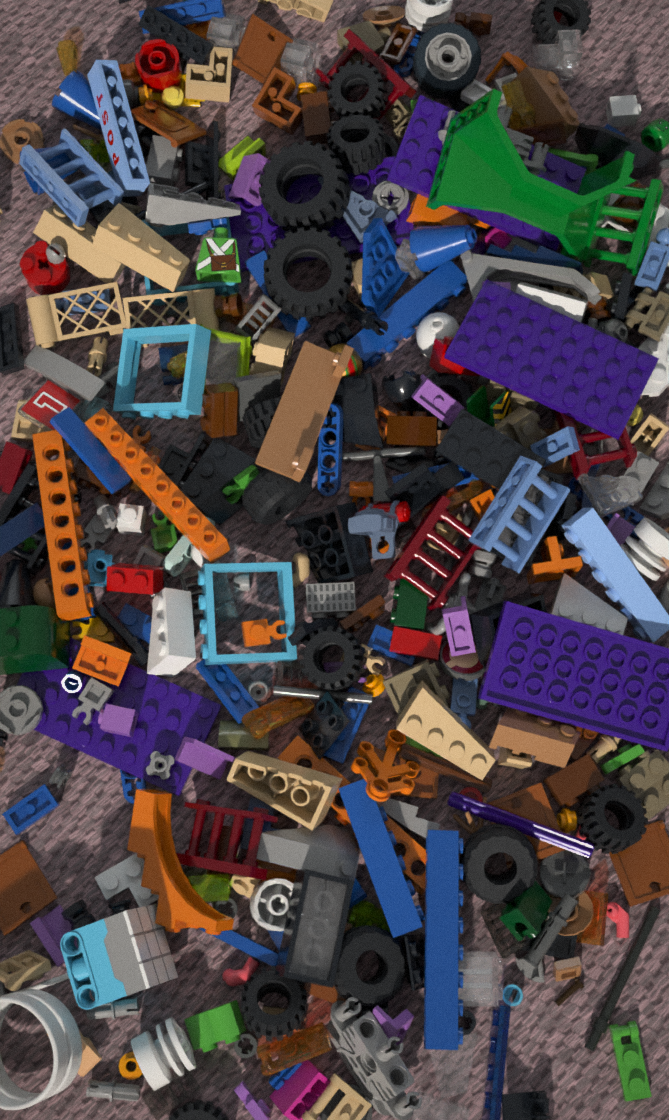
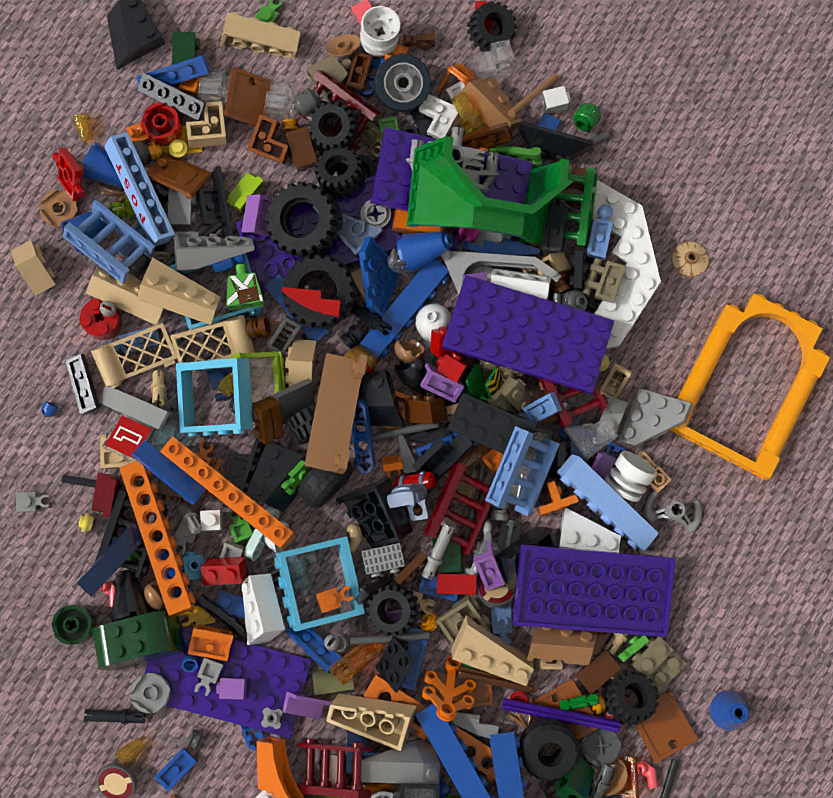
camera: 10 degrees left, 5 degrees up
(41, 100) = (69, 174): none -> red plate
(254, 690) = (335, 645): none -> light grey hinge
(300, 277) = (313, 300): none -> red slope
(330, 61) = (306, 102): none -> dark grey head
(395, 604) = (440, 546): none -> light grey pin
(401, 362) = (408, 351): none -> medium nougat hair
(453, 381) = (451, 366): none -> red brick
(546, 812) = (578, 702): none -> green axle
(597, 99) = (535, 93): none -> medium nougat bar
(602, 244) = (555, 227): none -> black hinge

